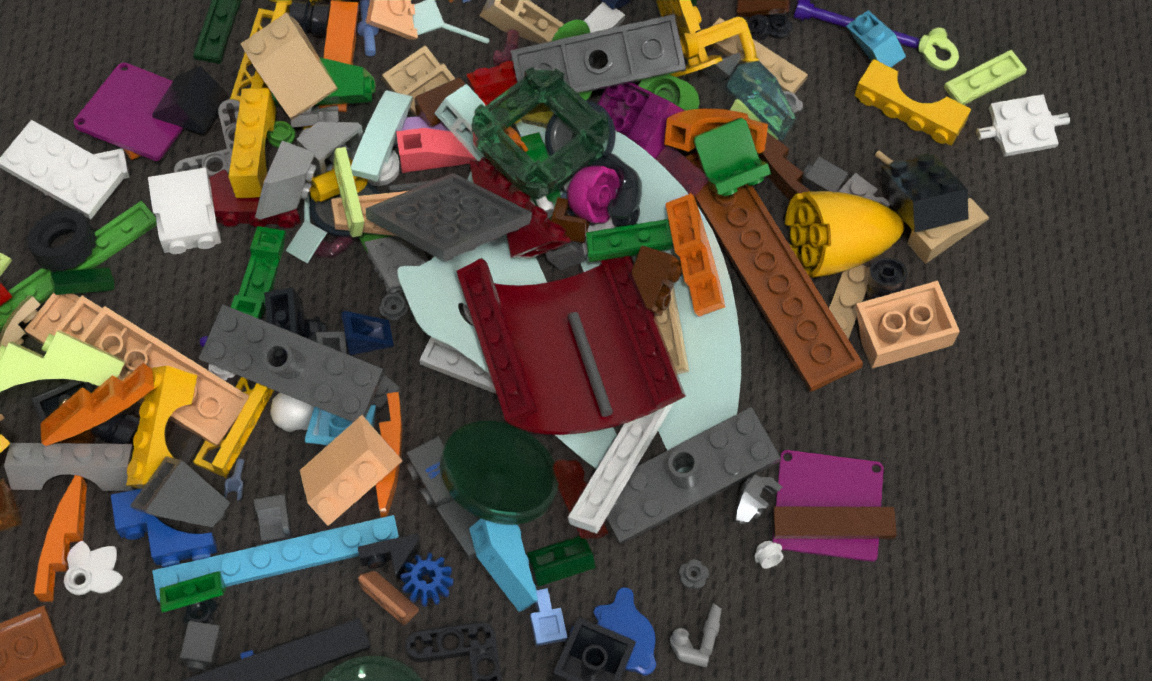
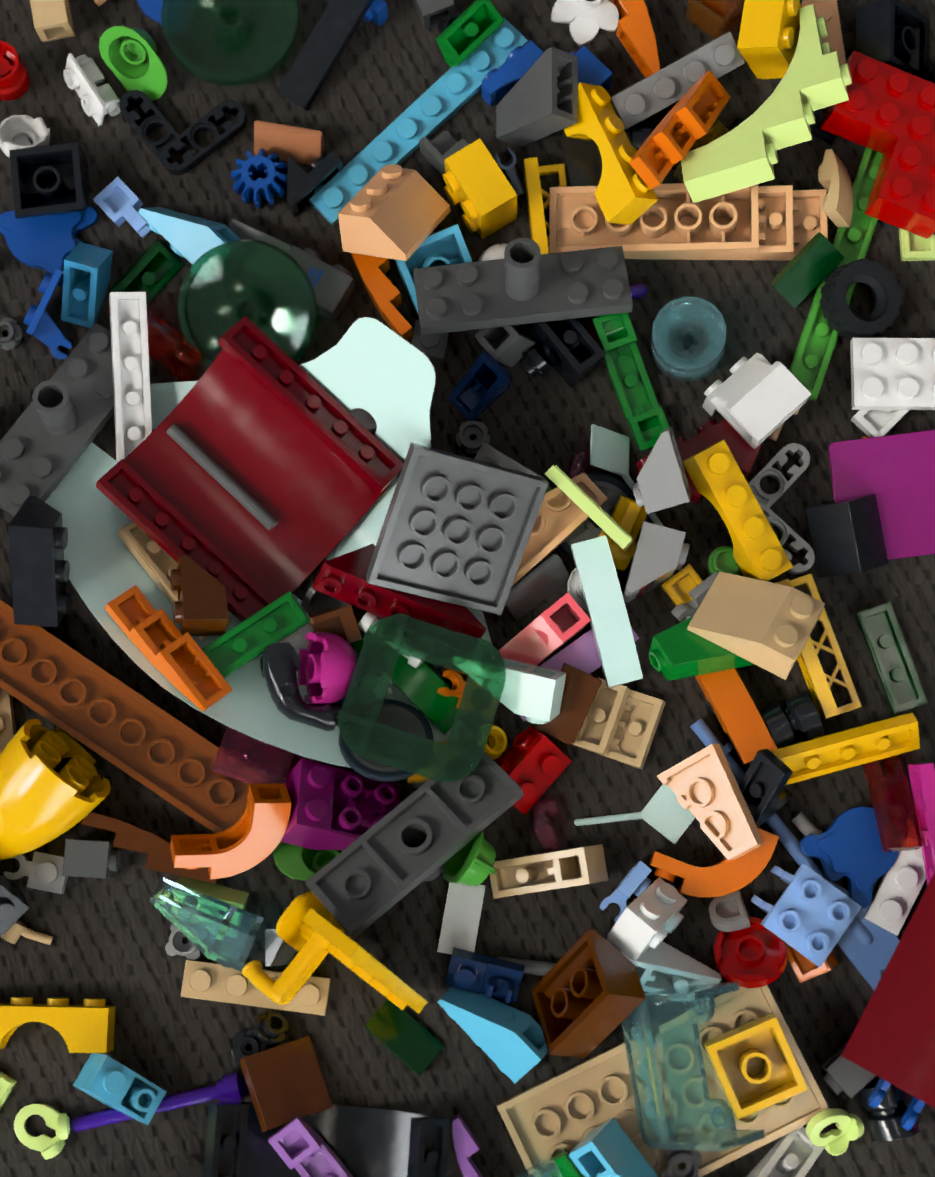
camera: 160 degrees right, 15 degrees up
(190, 266) = (693, 319): none -> clear light blue wheel
(270, 461) = (480, 189): none -> yellow brick
(609, 574) = (85, 283): none -> dark azure slope
(652, 561) = (41, 323): none -> blue plate
(730, 157) = (195, 801): green bracket -> none
(754, 362) = (38, 564): none -> black slope

